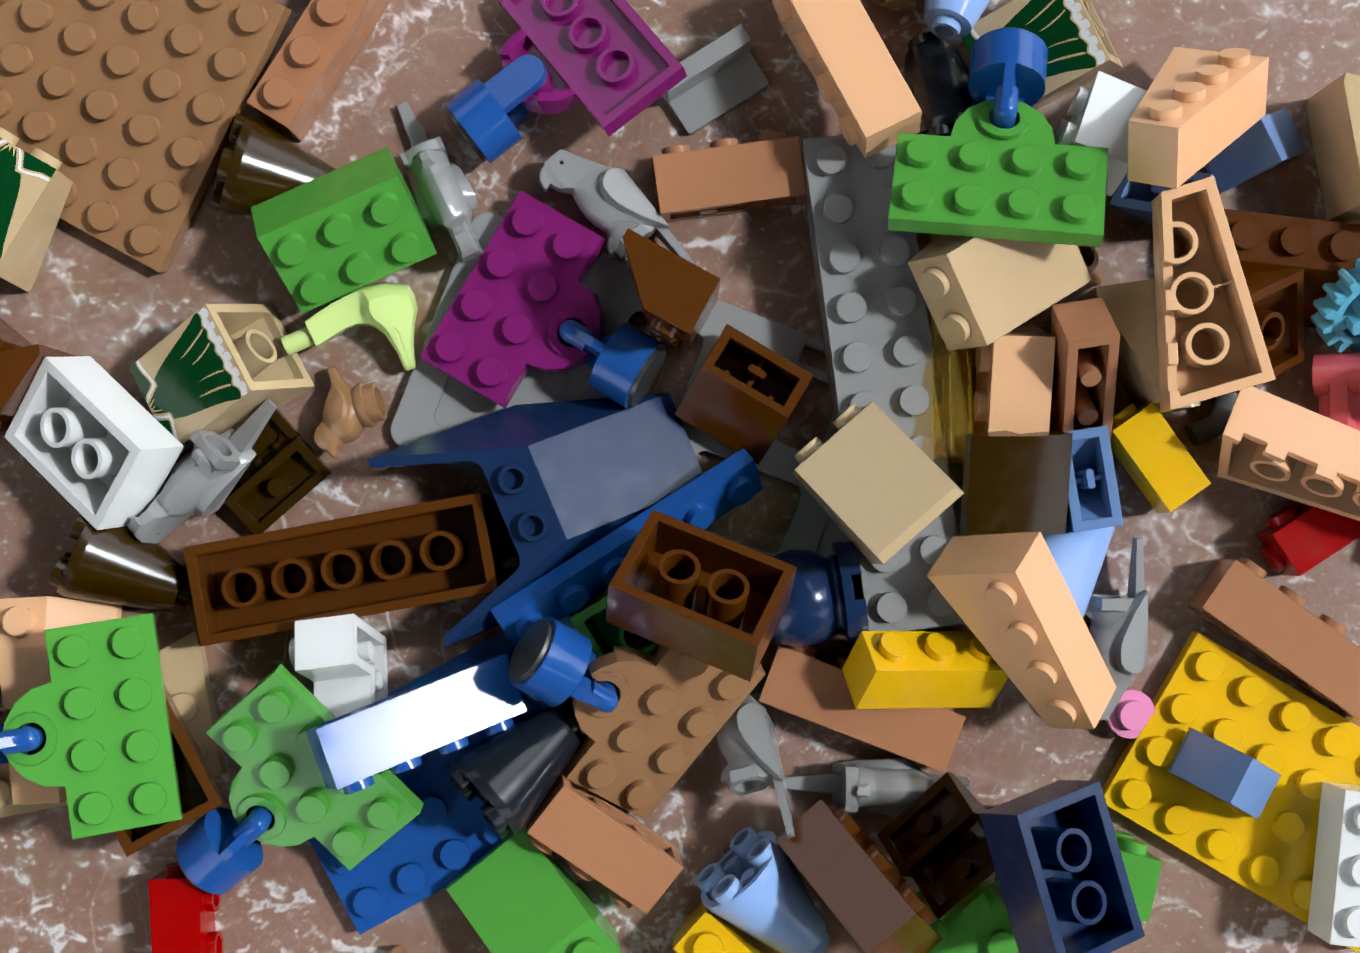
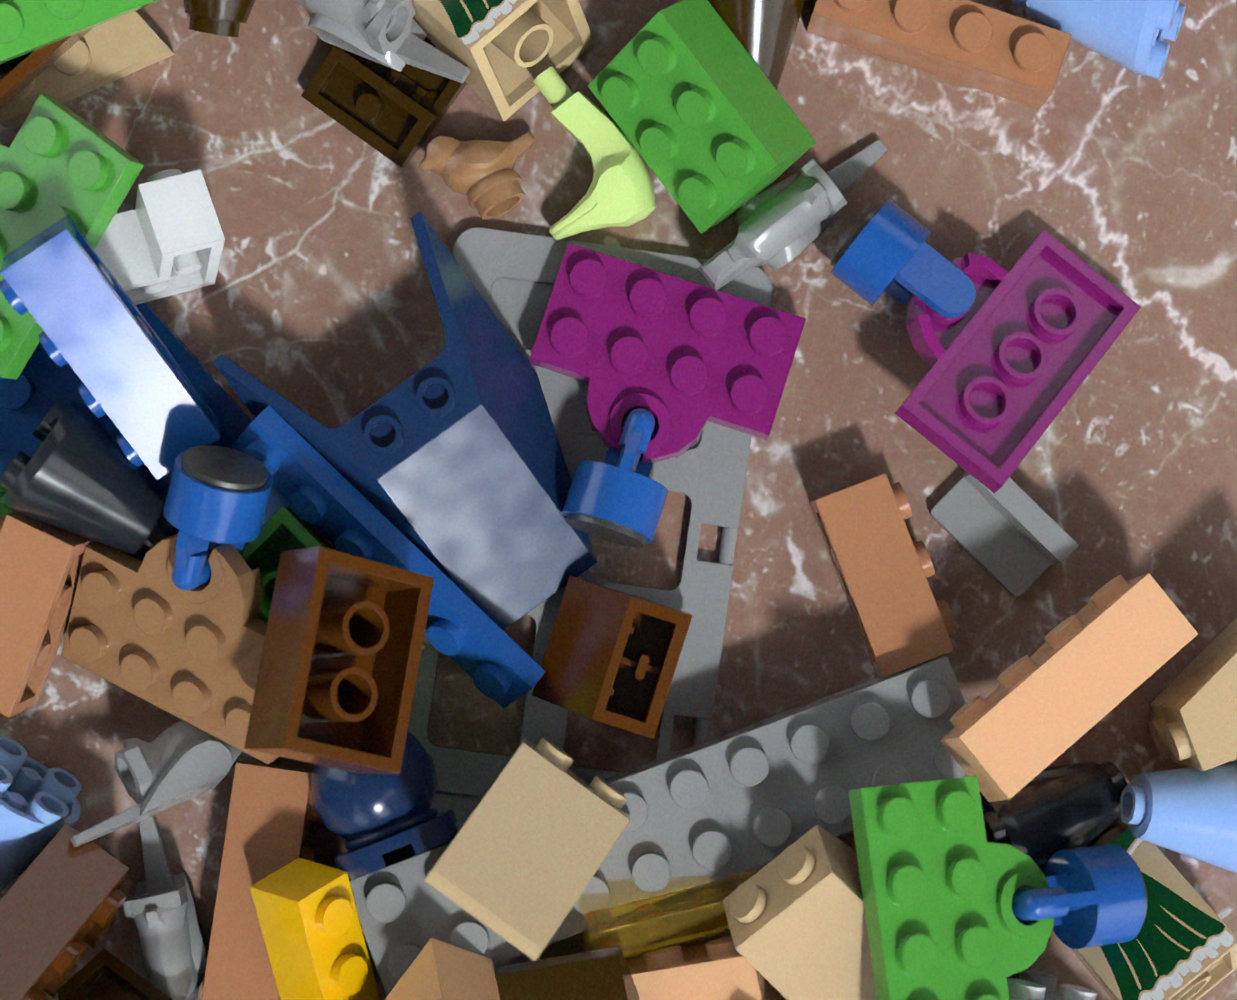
camera: 80 degrees right, 0 degrees up
(343, 568) = (283, 213): reddish brown brick -> none
(607, 200) = (814, 434): light grey animal -> none
(671, 291) = (712, 534): reddish brown slope -> none

